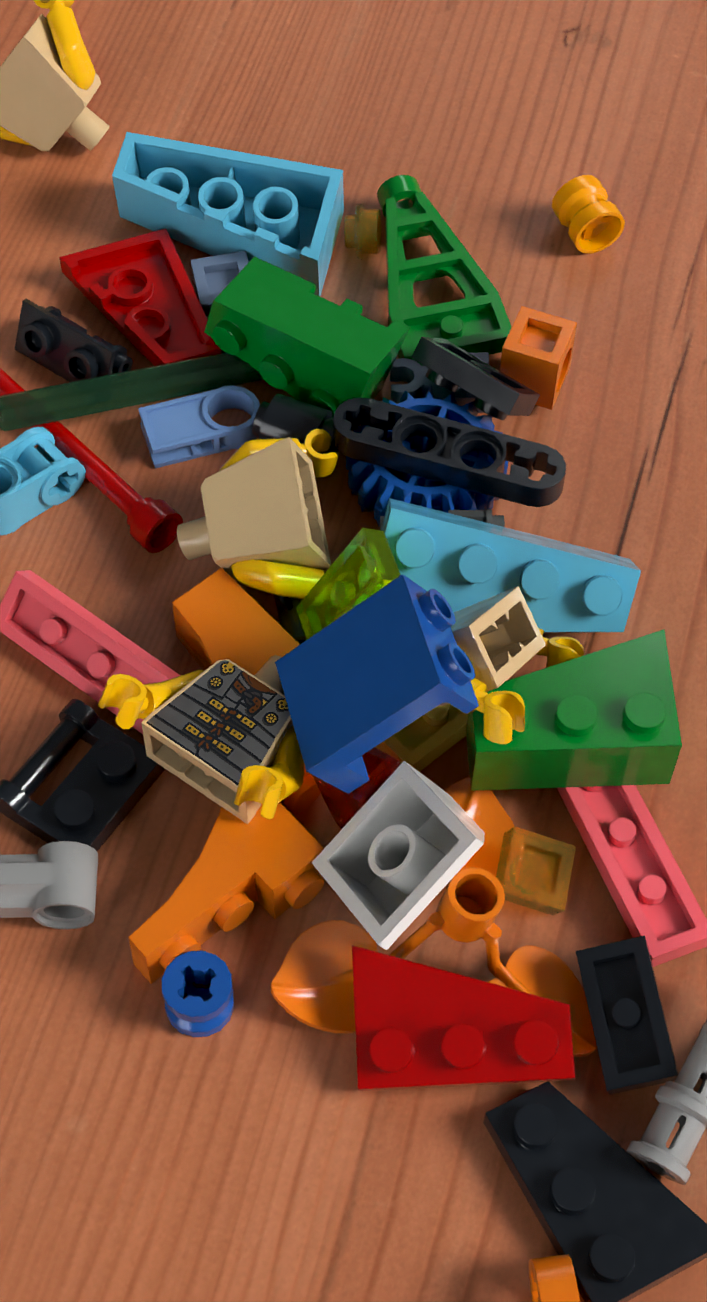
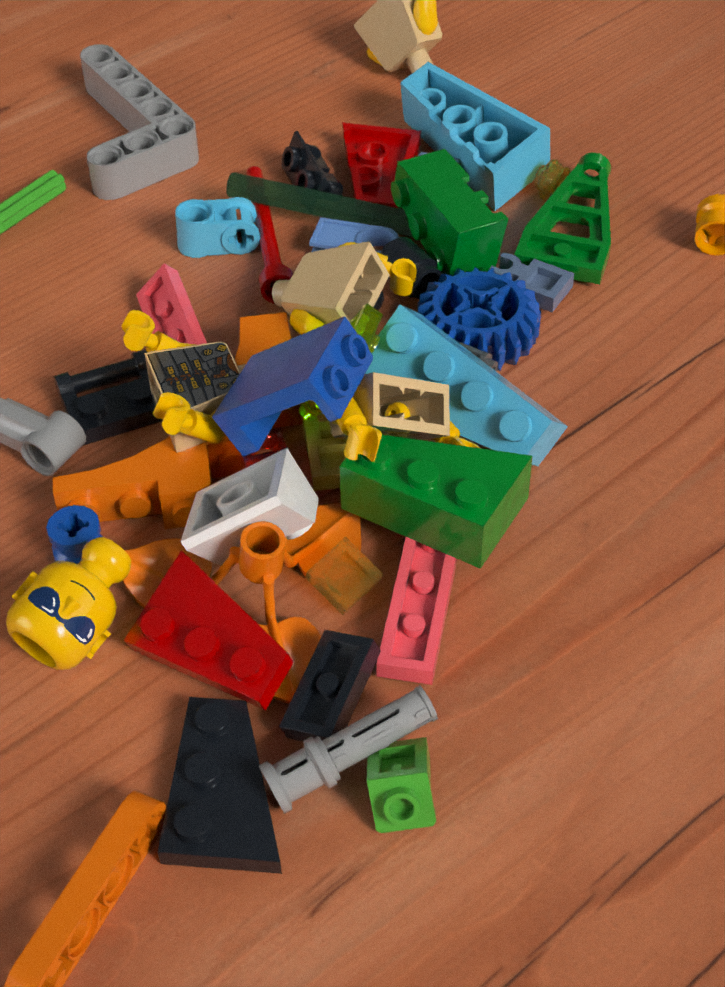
camera: 35 degrees right, 10 degrees down
(277, 1089) = (69, 606): none -> yellow piece
(451, 443) = (523, 338): black beam -> none
(454, 367) = (538, 269): black plate -> none
(539, 353) = (602, 285): orange brick -> none

